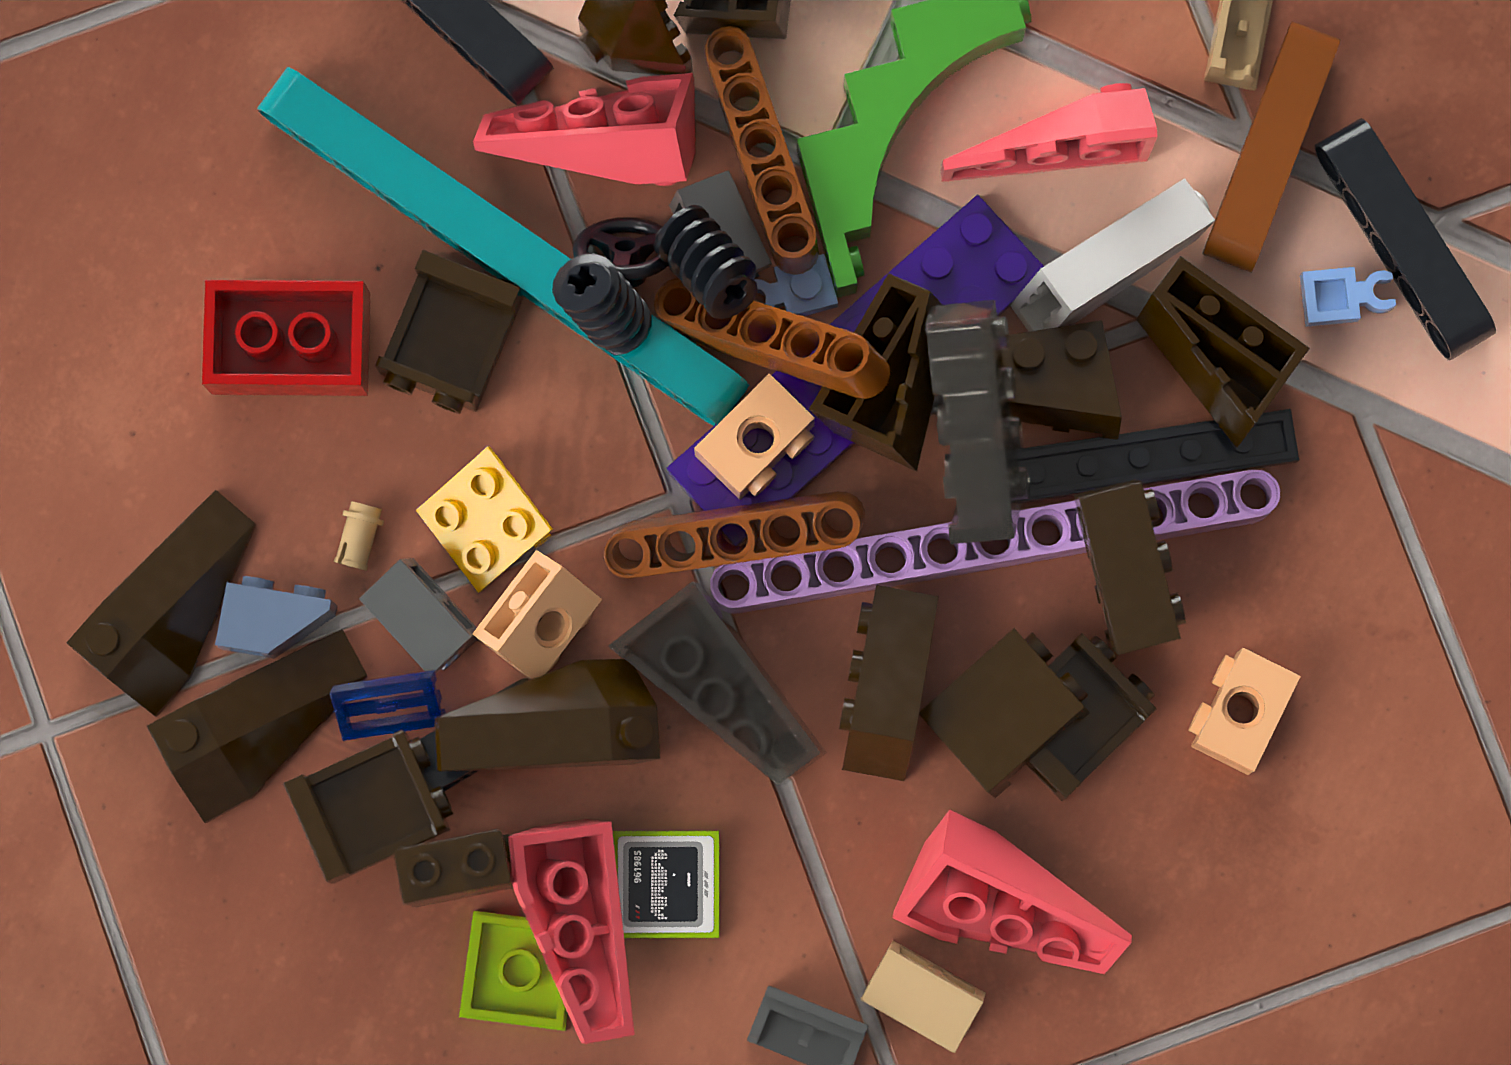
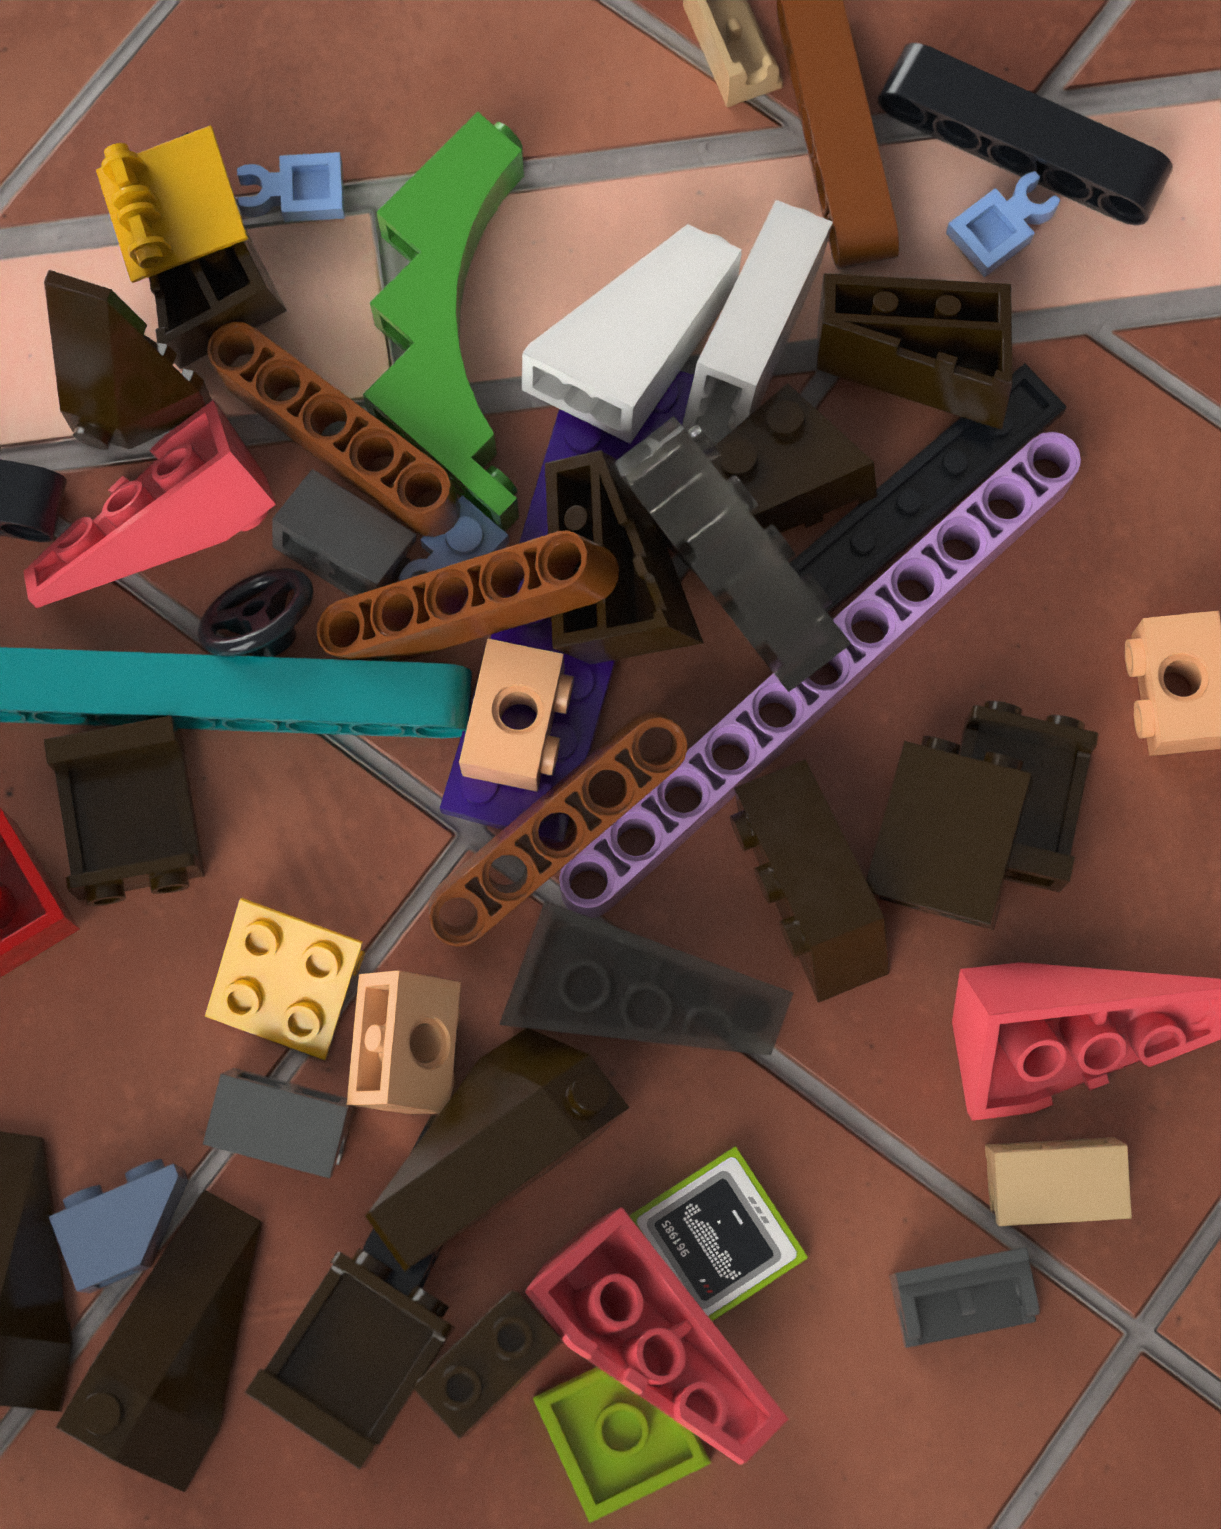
camera: 35 degrees left, 5 degrees down
(358, 535) = (160, 1079): tan pin -> none
(382, 687) = (286, 1221): clear blue tile -> none
(602, 303) = (268, 671): black piece -> none
(707, 262) = (351, 563): black piece -> none
(1019, 215) = (634, 335): none -> white slope
(1087, 133) = (655, 202): coral wedge -> none
(1129, 566) = (981, 604): dark brown wedge -> none

